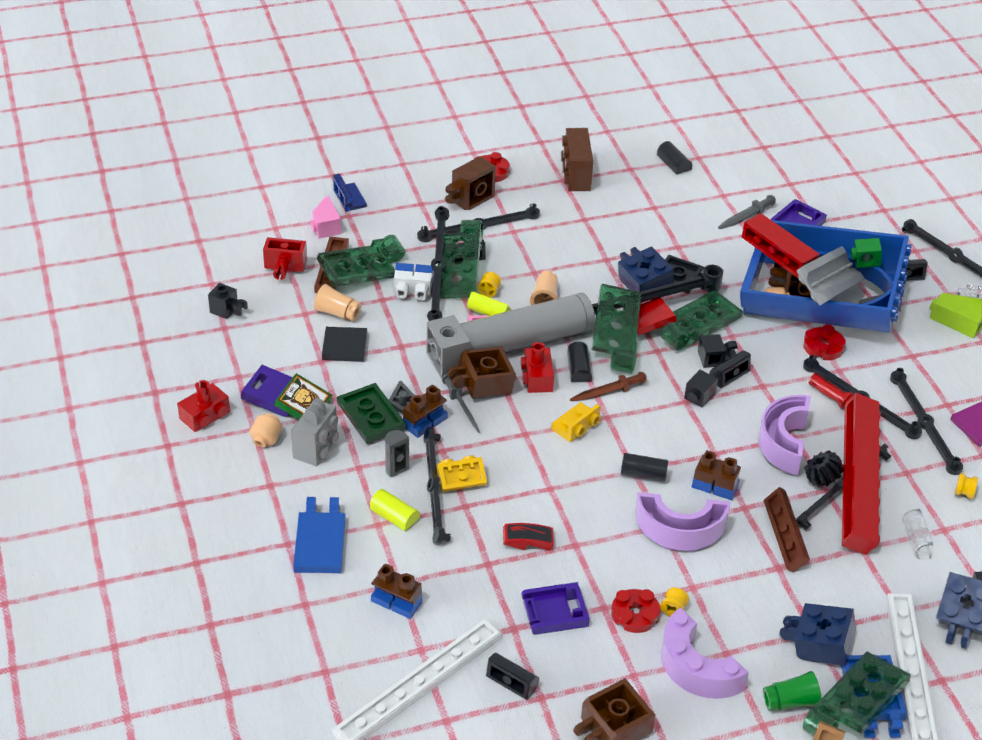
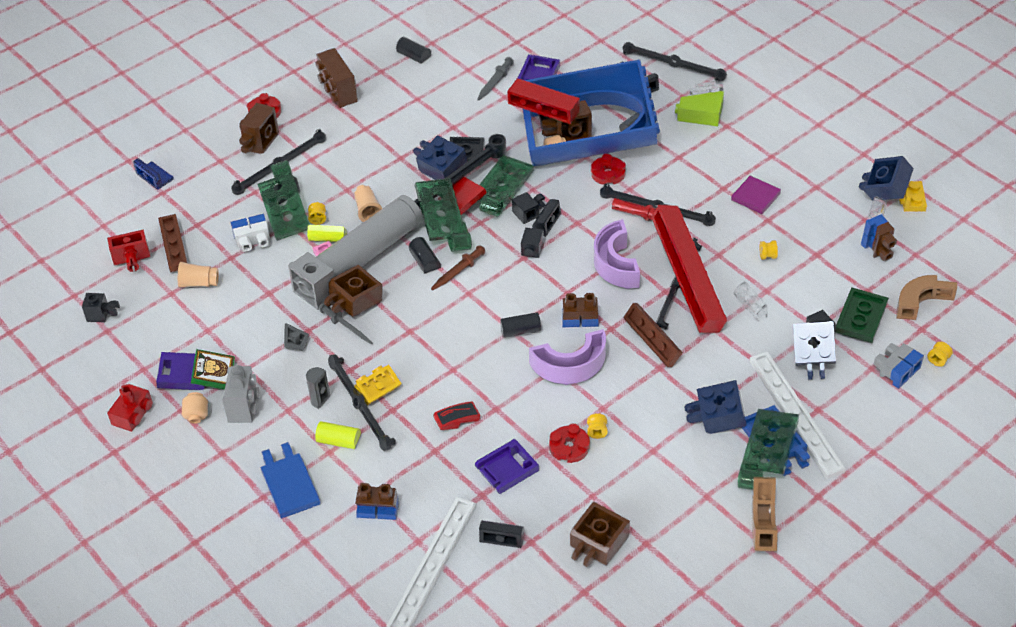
camera: 20 degrees left, 5 degrees up
(326, 219) = (146, 203): bright pink slope -> none
(344, 344) = (220, 308): black tile -> none
(370, 412) = (275, 360): dark green plate -> none
(383, 250) = (211, 214): clear green hinge -> none
(425, 411) = (321, 343): reddish brown hips -> none
(441, 215) = (284, 256): black piece -> none
(538, 369) = (394, 273): red brick -> none
(576, 421) = (447, 306): yellow bracket -> none
(691, 670) = (637, 474): lavender brick -> none
(793, 692) = (719, 462): green plant -> none
(824, 469) = (658, 275): black gear -> none
(829, 275) = (594, 114): light grey plate -> none
(867, 252) = (612, 84): green brick -> none
(953, 463) = (750, 235): black piece -> none

